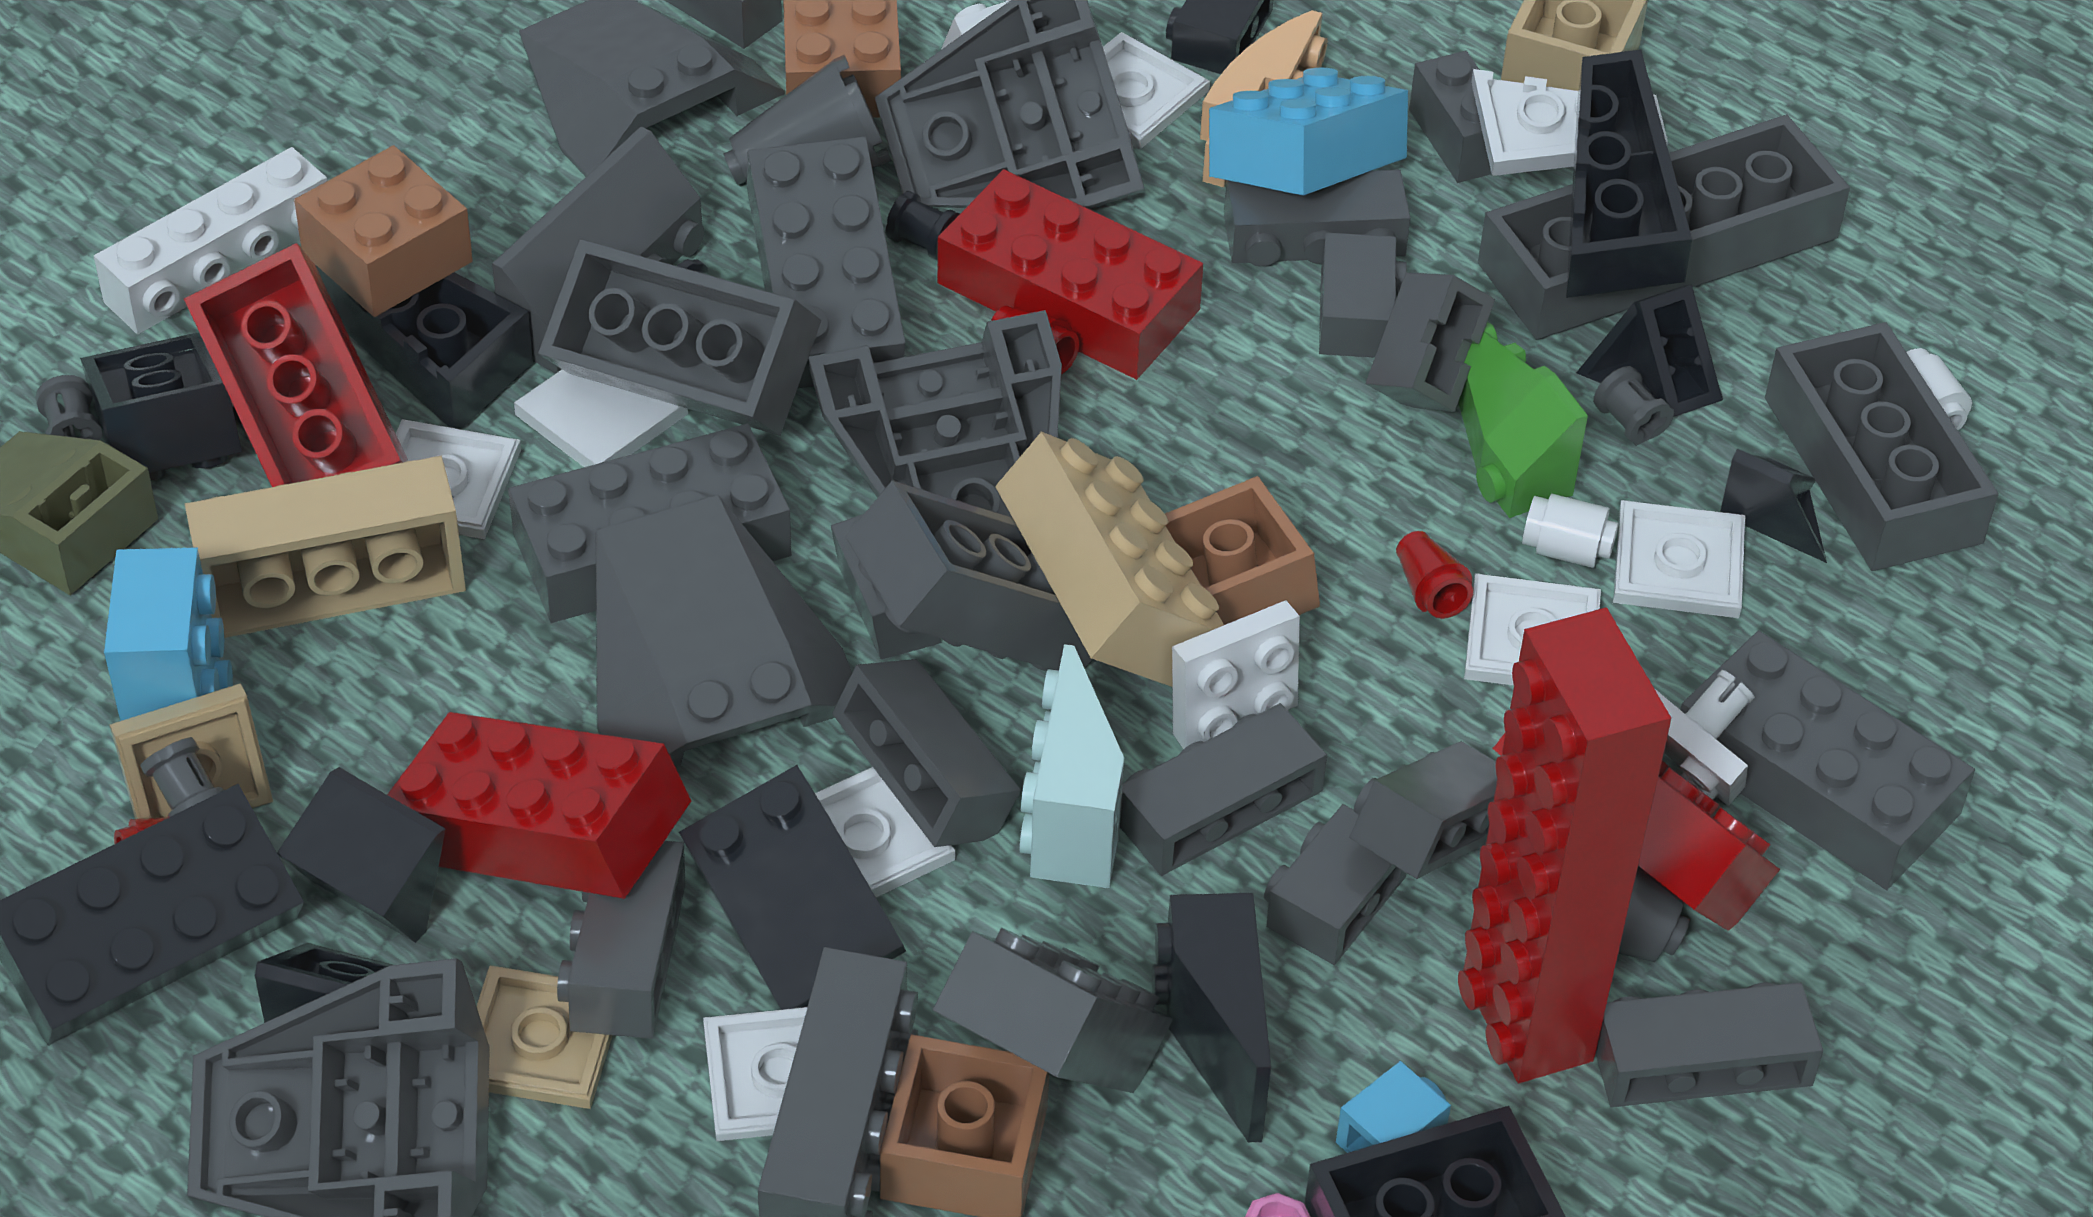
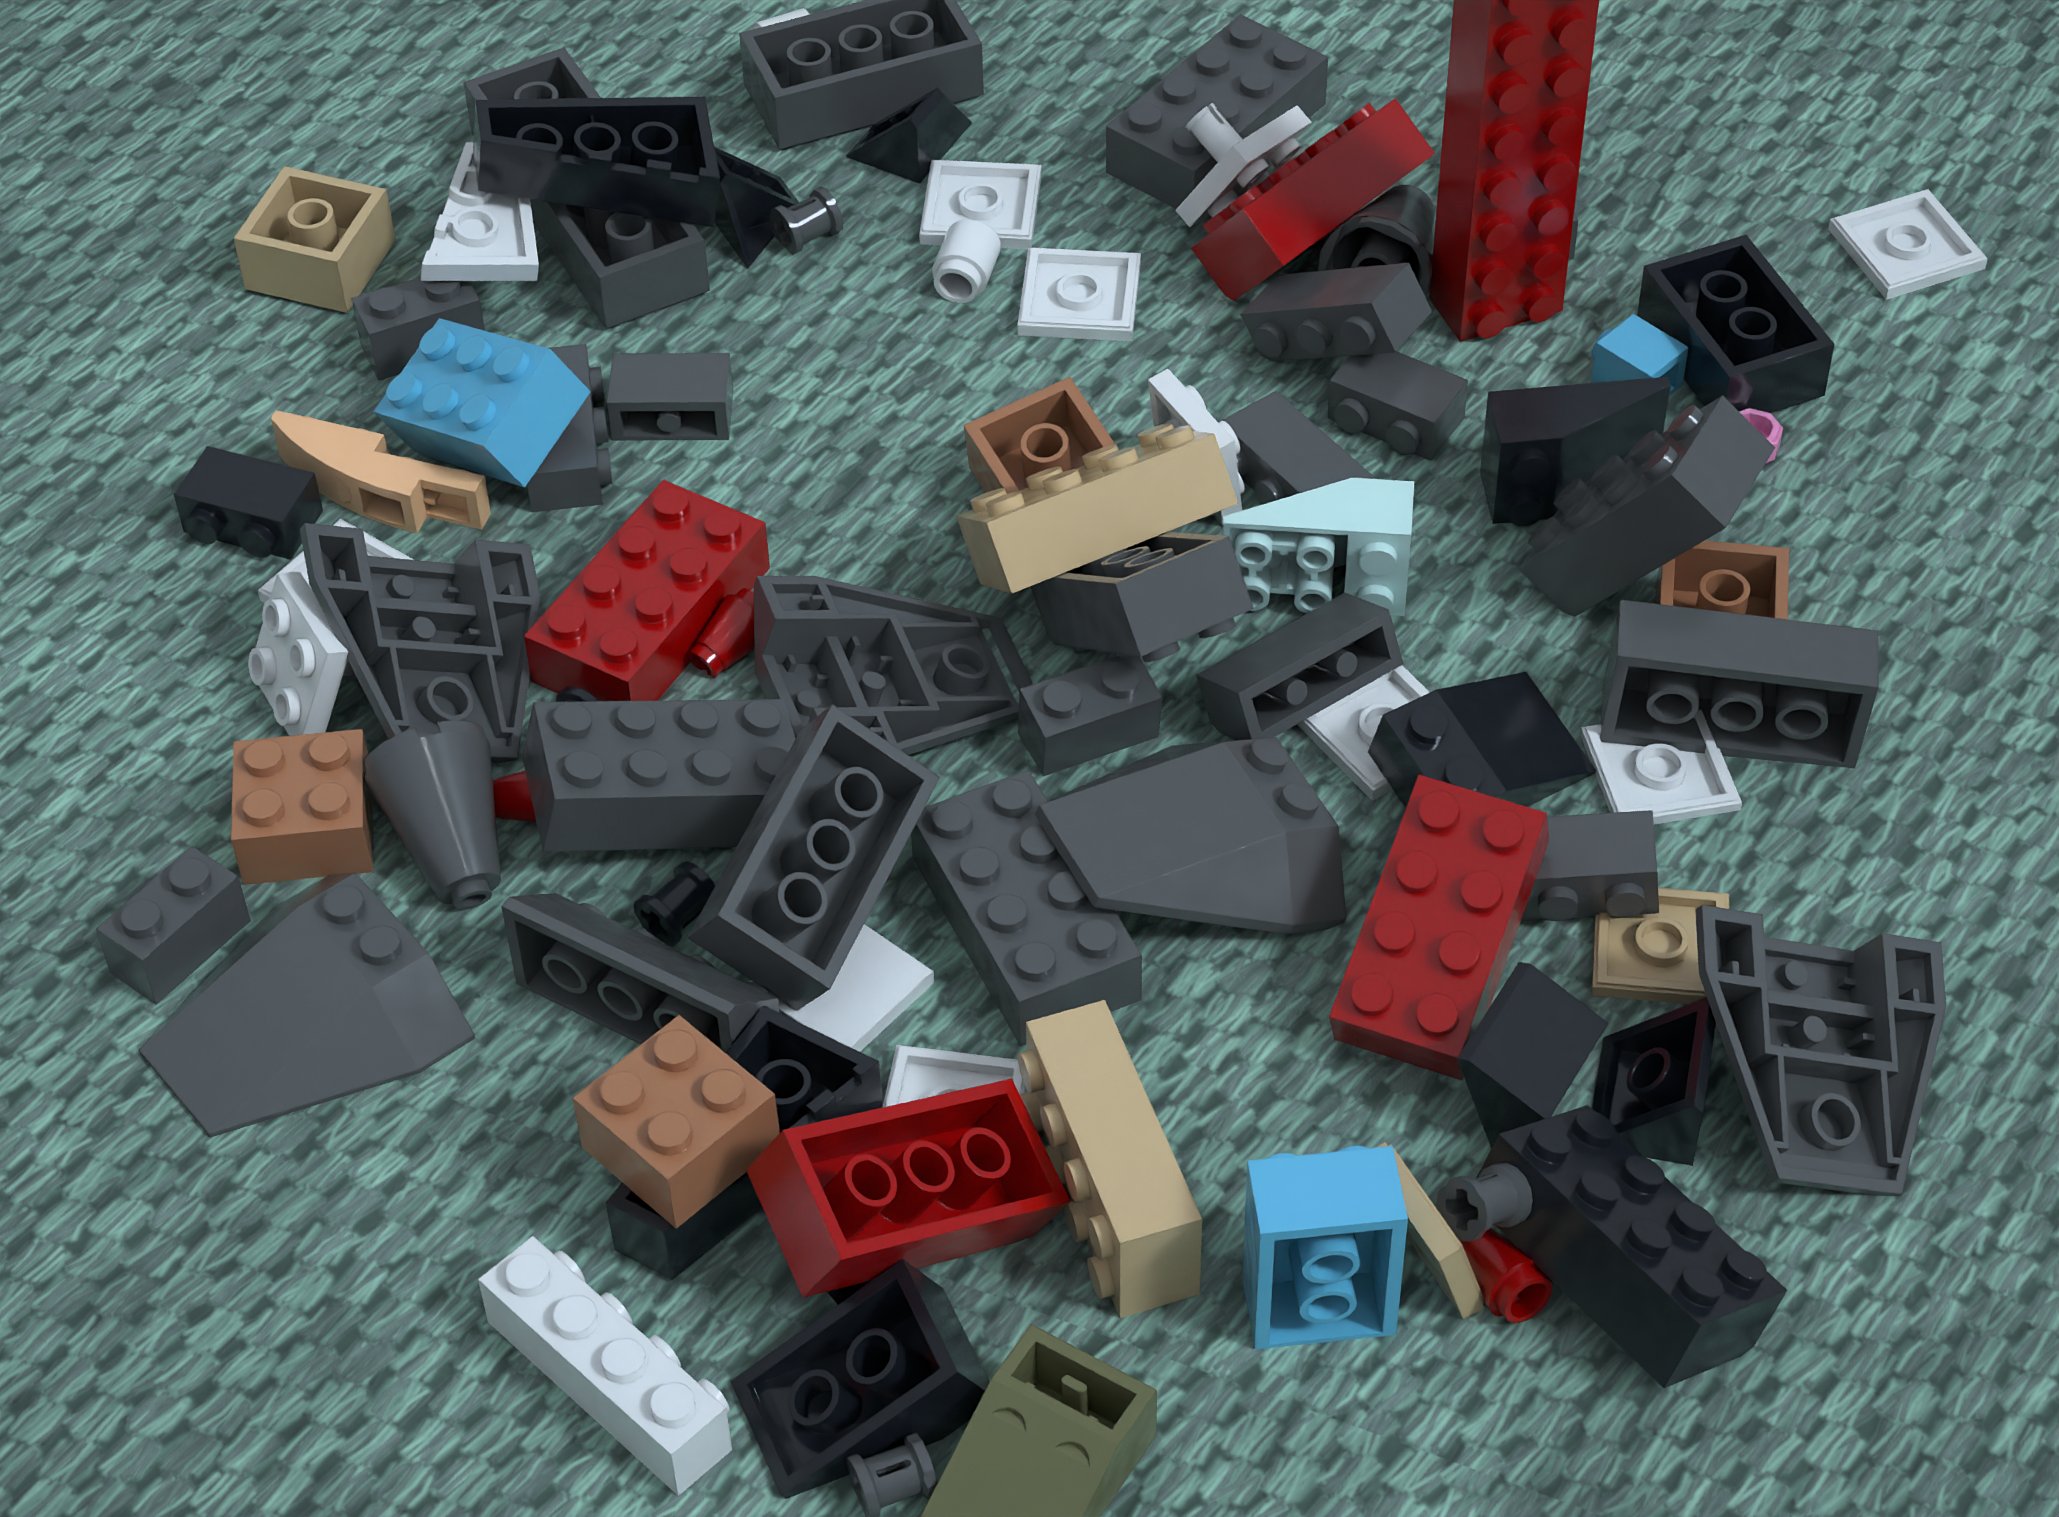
camera: 90 degrees left, 0 degrees up
(1429, 340) = (778, 337): dark grey brick -> none
(1434, 576) = (1024, 349): red cone -> none
(1519, 426) = (845, 285): bright green wedge -> none

